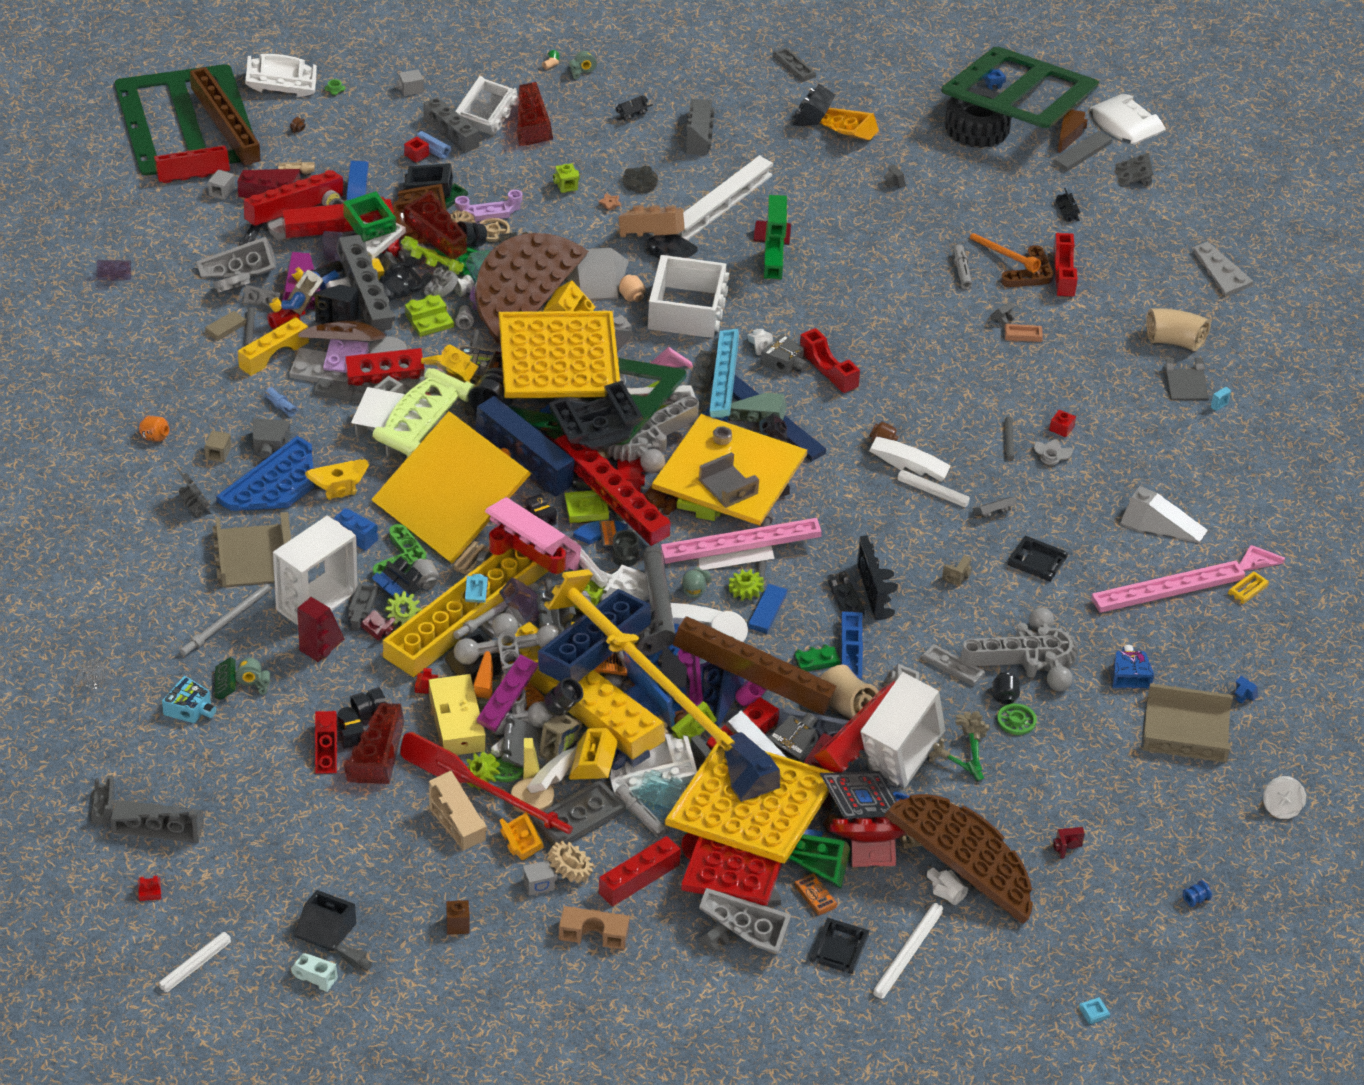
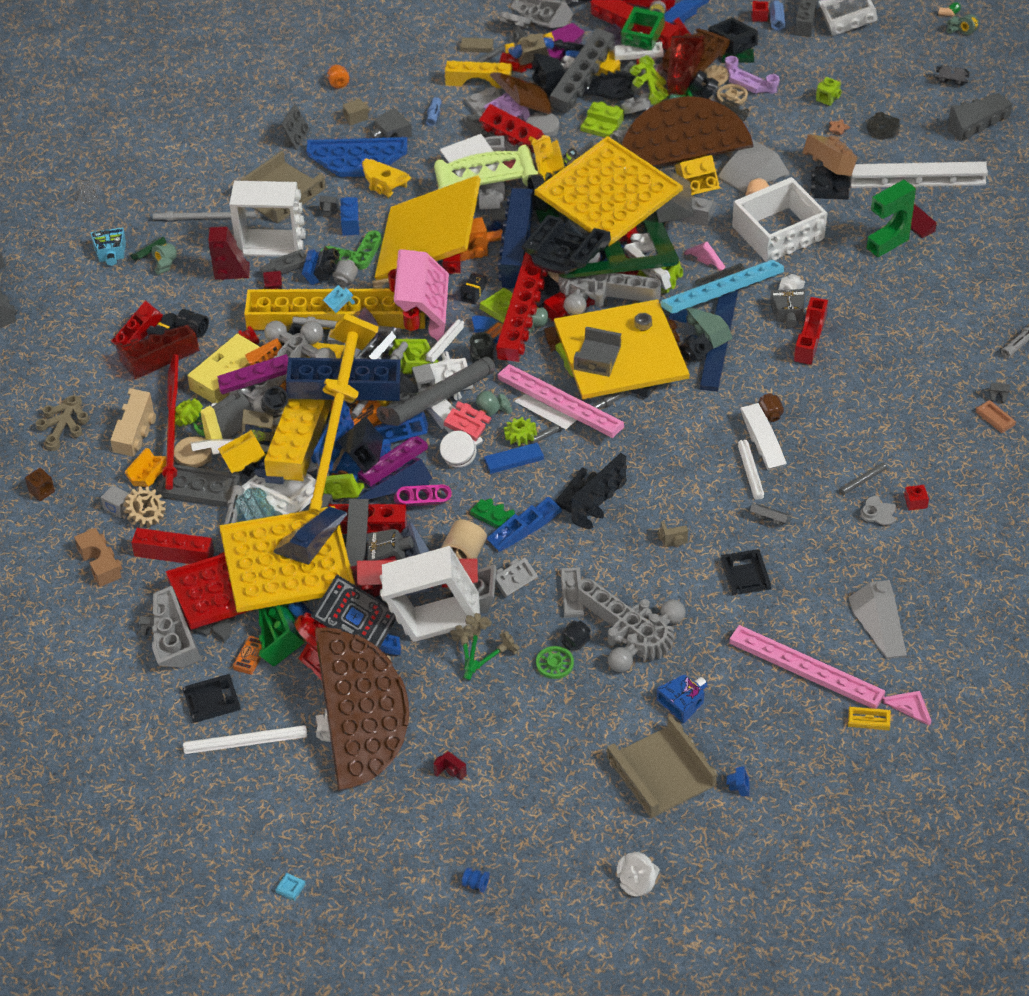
camera: 55 degrees right, 5 degrees up
(373, 842) = (70, 404): none -> dark tan plant
(399, 602) = (297, 280): lime gear -> none
(532, 117) = (870, 36): clear red wedge -> none
(706, 603) = (461, 421): none -> coral plate
(754, 665) = (416, 478): reddish brown brick -> none

